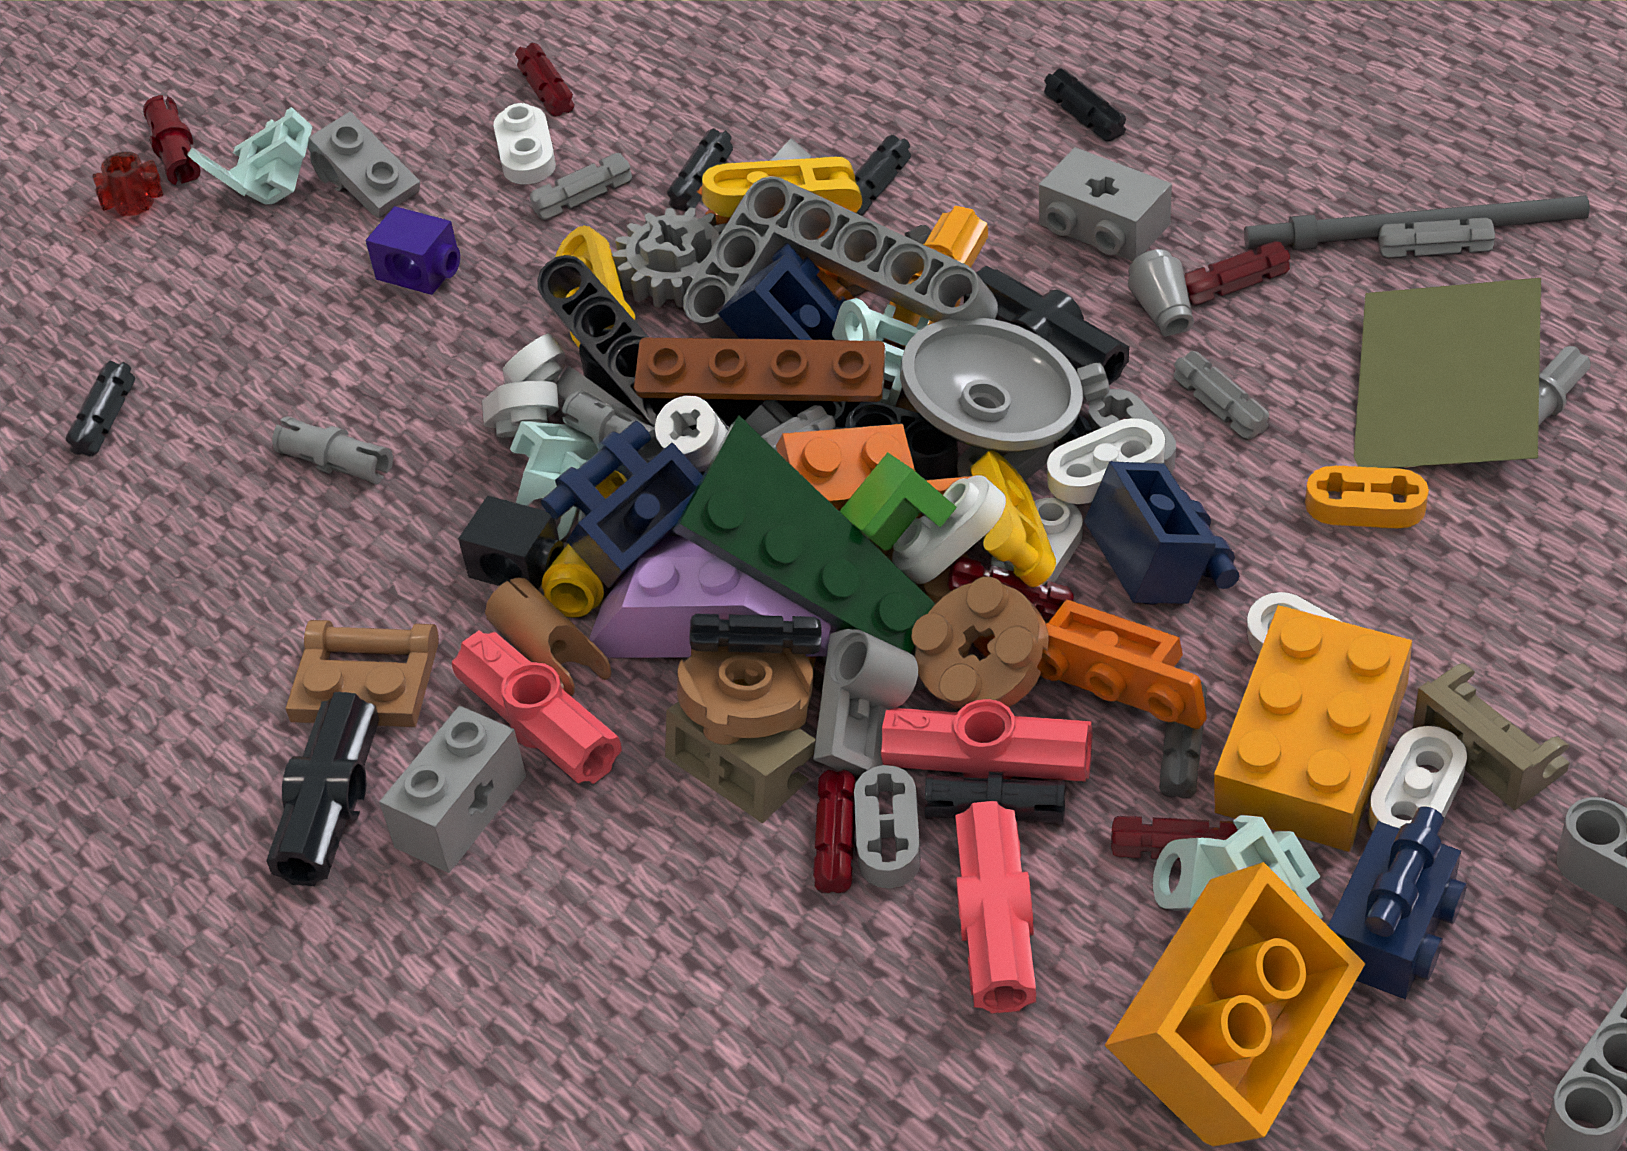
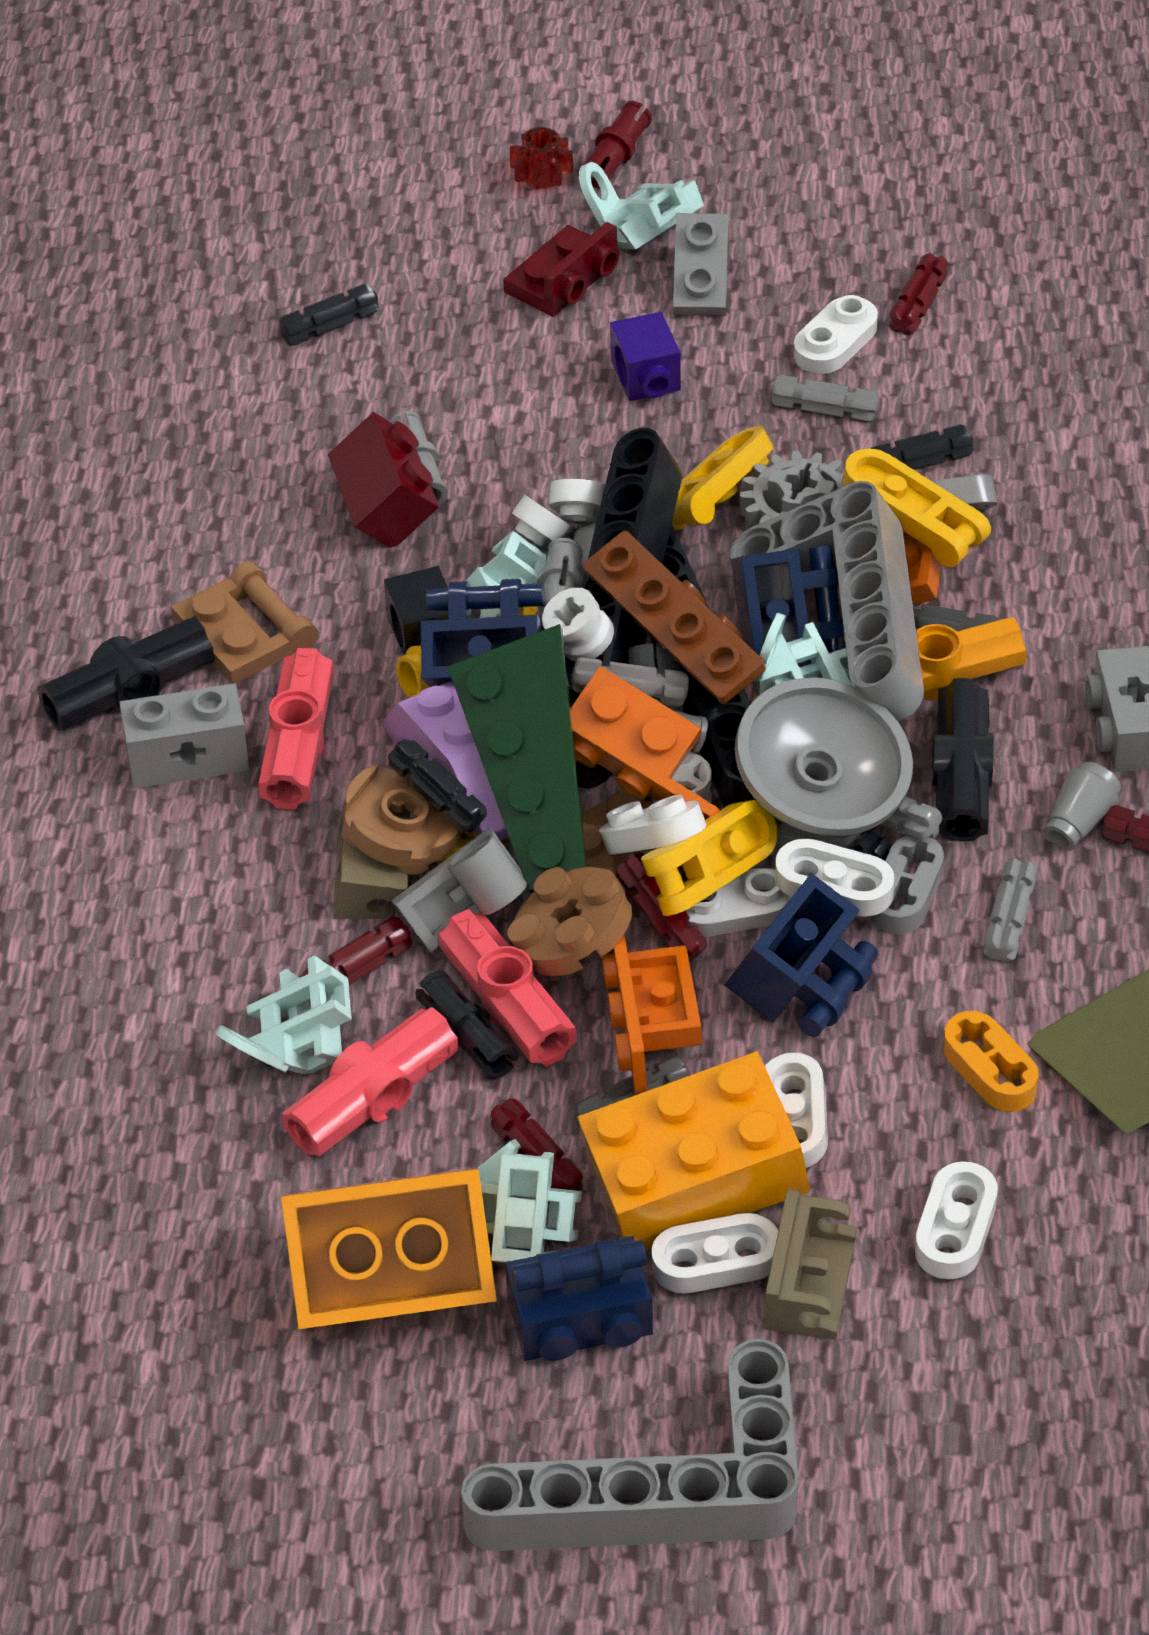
camera: 45 degrees right, 0 degrees up
(251, 244) = (564, 268): none -> dark red bracket
(340, 475) = (383, 480): none -> dark red brick
(542, 631) = (366, 683): medium nougat piece -> none
(881, 169) = (1028, 554): black axle -> none
(888, 908) = (291, 1042): none -> light aqua piece
(892, 501) = (625, 775): bright green panel -> none
(900, 824) = (384, 979): light grey beam -> none
(1524, 617) = (954, 1223): none -> white plate

